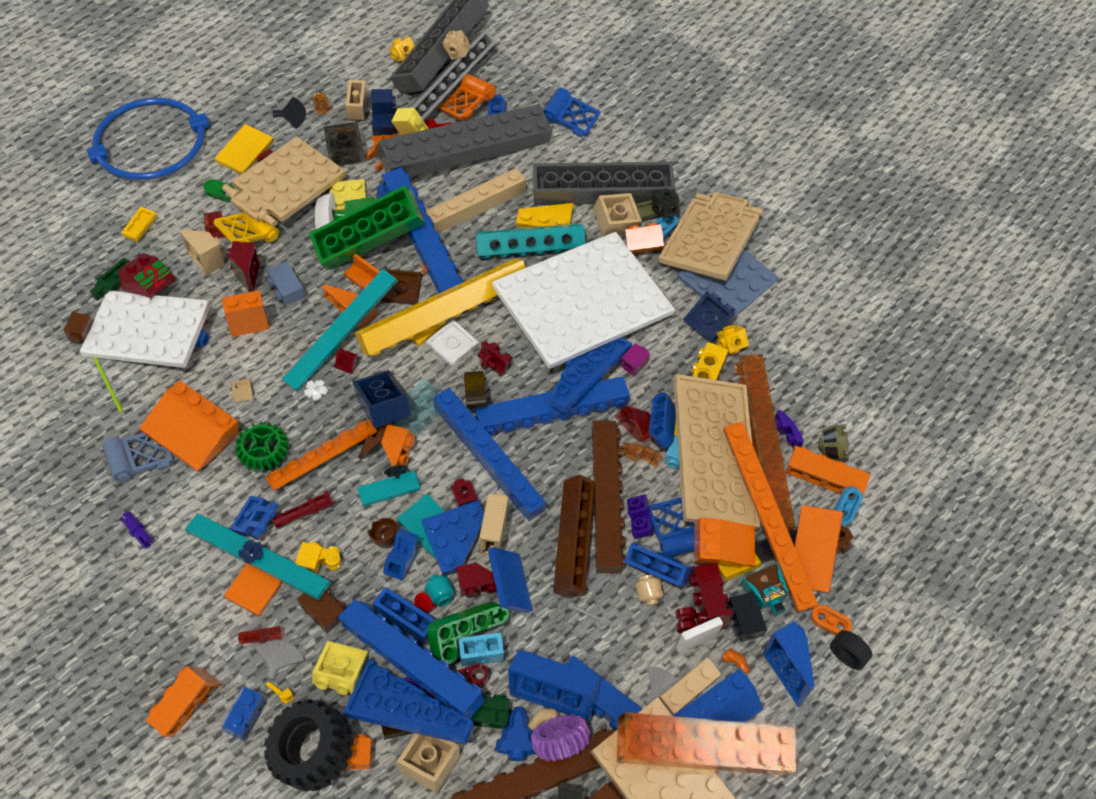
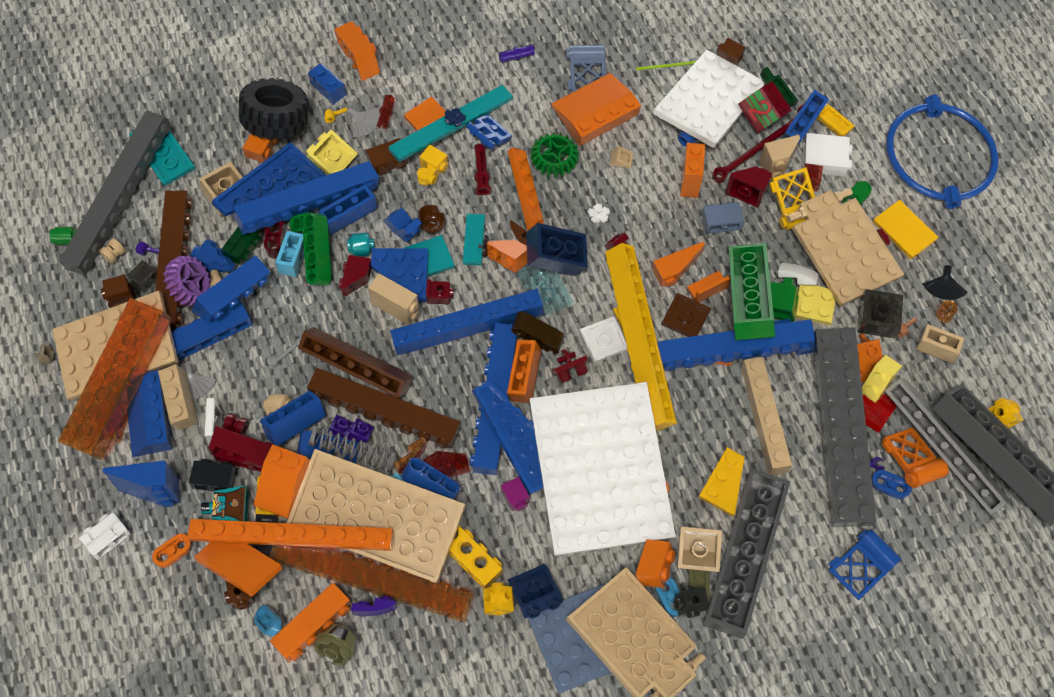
camera: 115 degrees right, 5 degrees up
(138, 249) = (723, 171): none -> dark red hinge
(150, 240) = (806, 115): none -> blue brick
(181, 215) = (828, 151): none -> white brick
(339, 330) = (649, 244): teal tile -> none
(383, 111) = (915, 363): dark blue brick -> none
(424, 602) = (356, 228): red plate -> none
(456, 44) = (982, 456): tan brick -> none
(483, 240) = (696, 449): teal brick -> none
(510, 580) = (339, 296): blue tile -> none
(517, 387) = (524, 371): none -> orange brick
(661, 502) = (391, 461): none -> light grey piece
(737, 658) = (183, 454): orange arm -> none
(851, 649) = (133, 547): black tyre -> none
(851, 689) = (104, 535): none -> white brick

